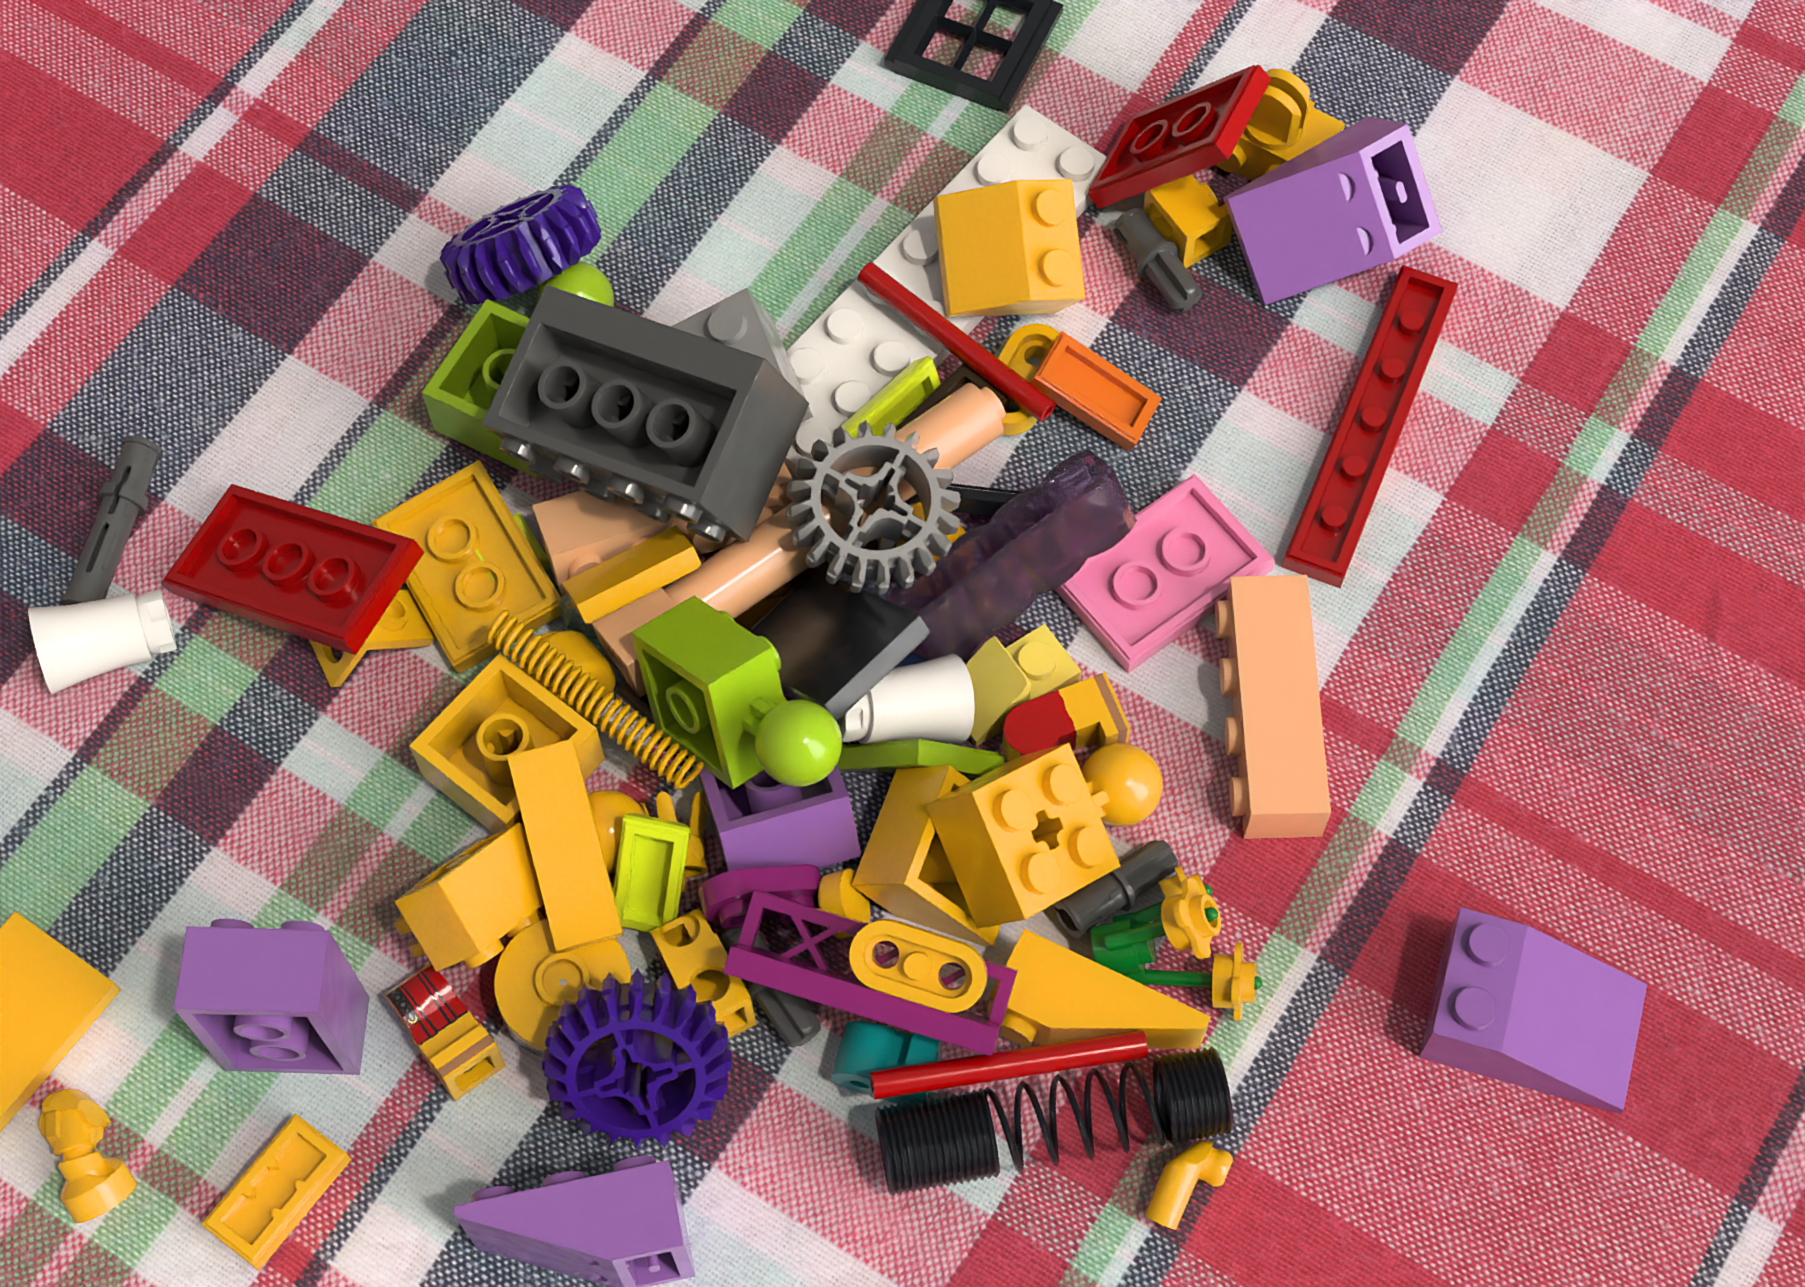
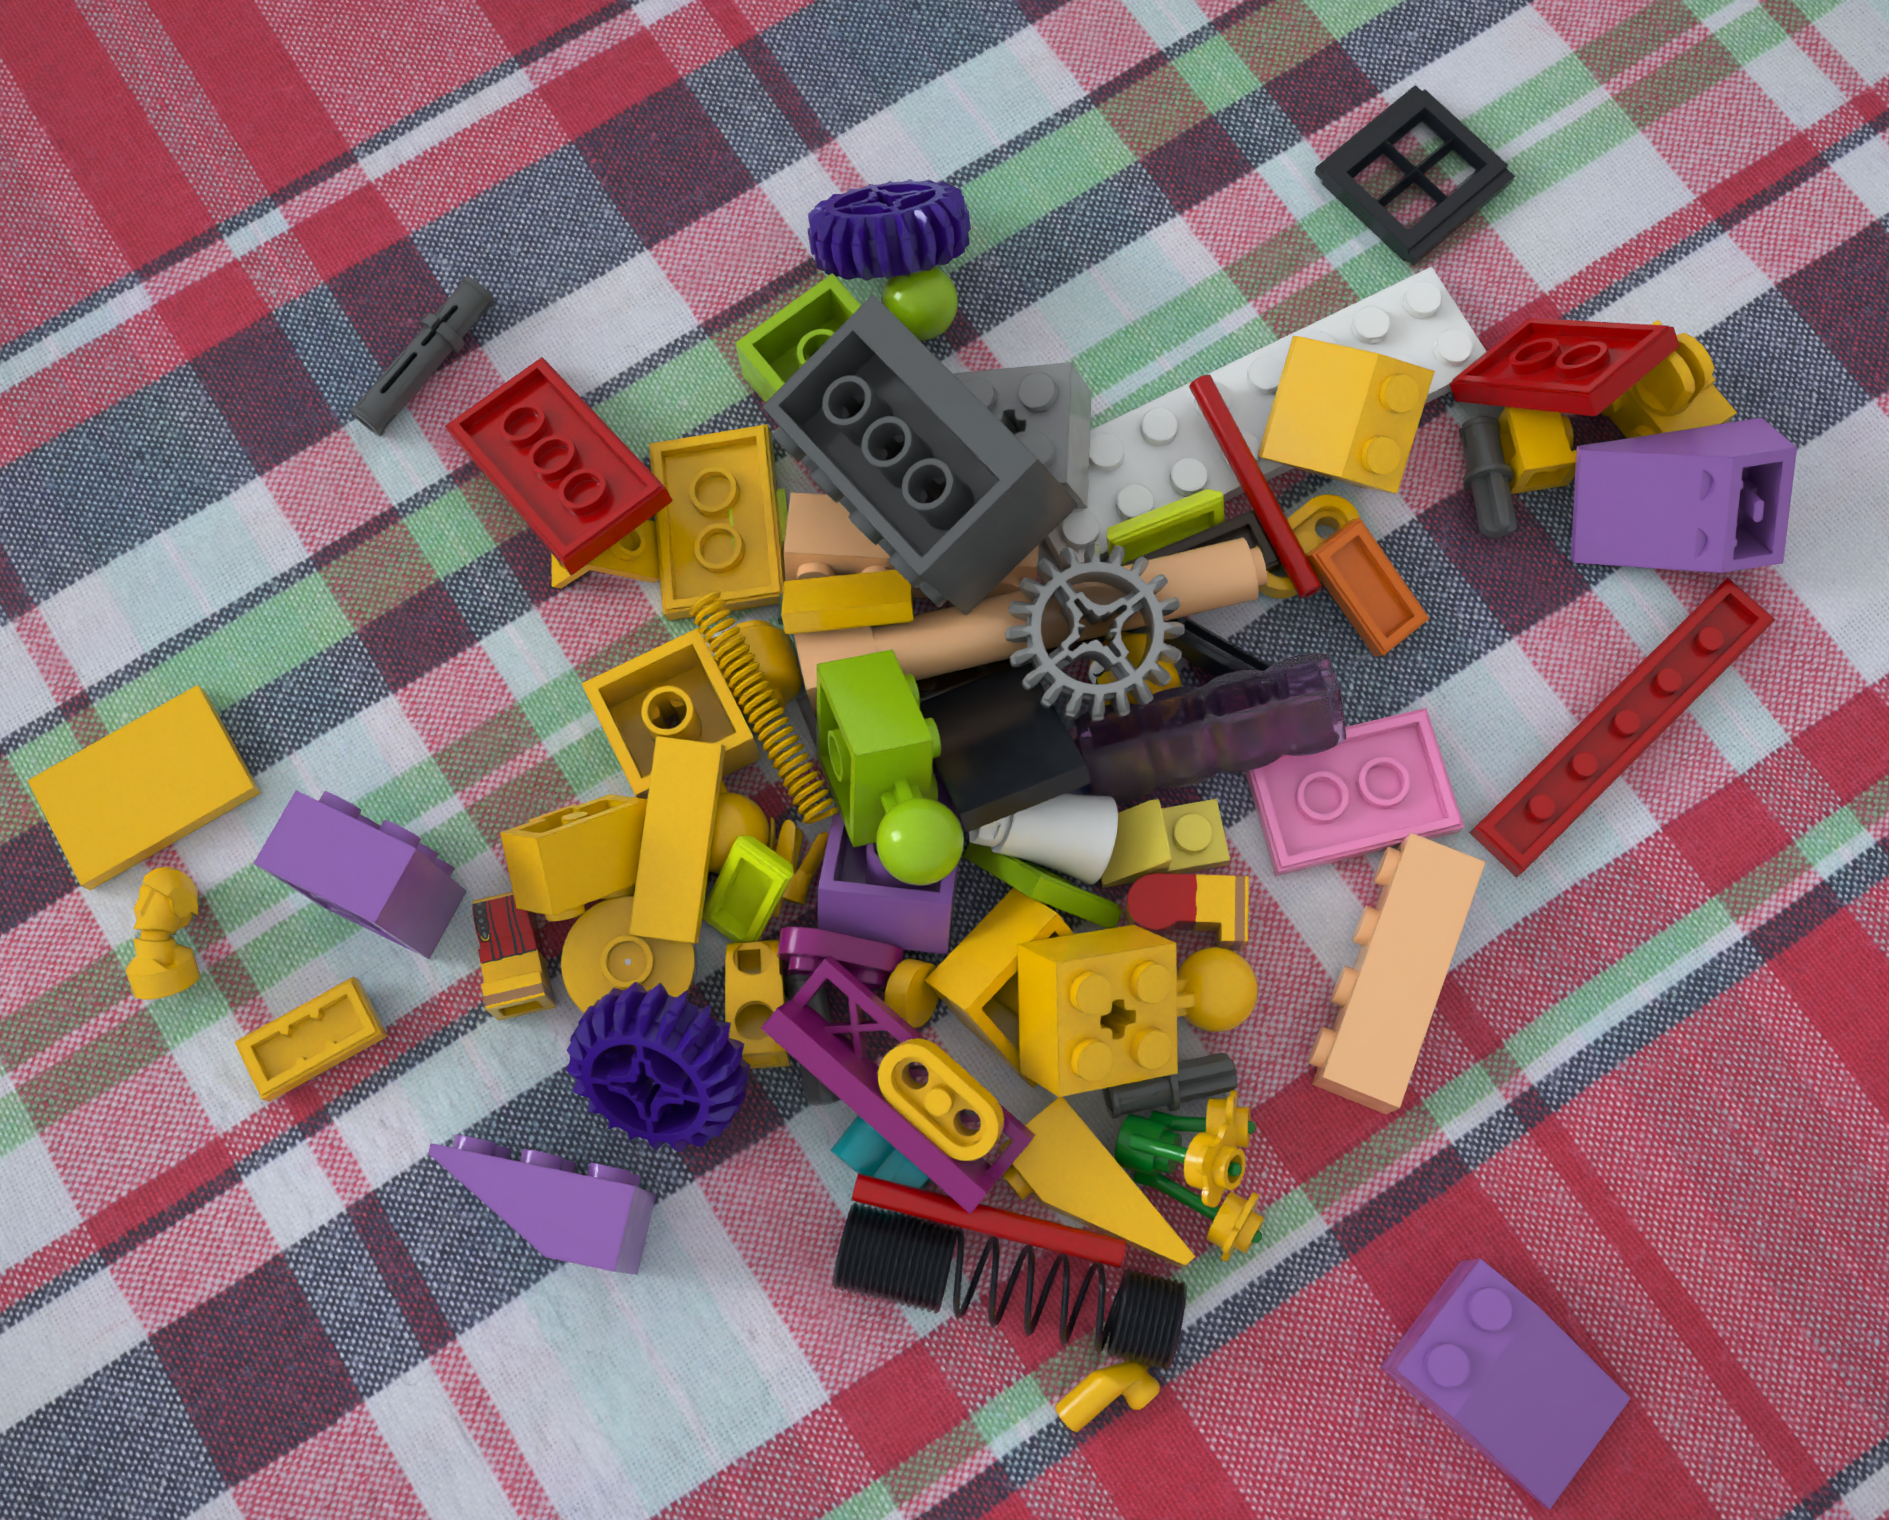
camera: 25 degrees right, 10 degrees up
(99, 636) = (365, 458): white plant -> none

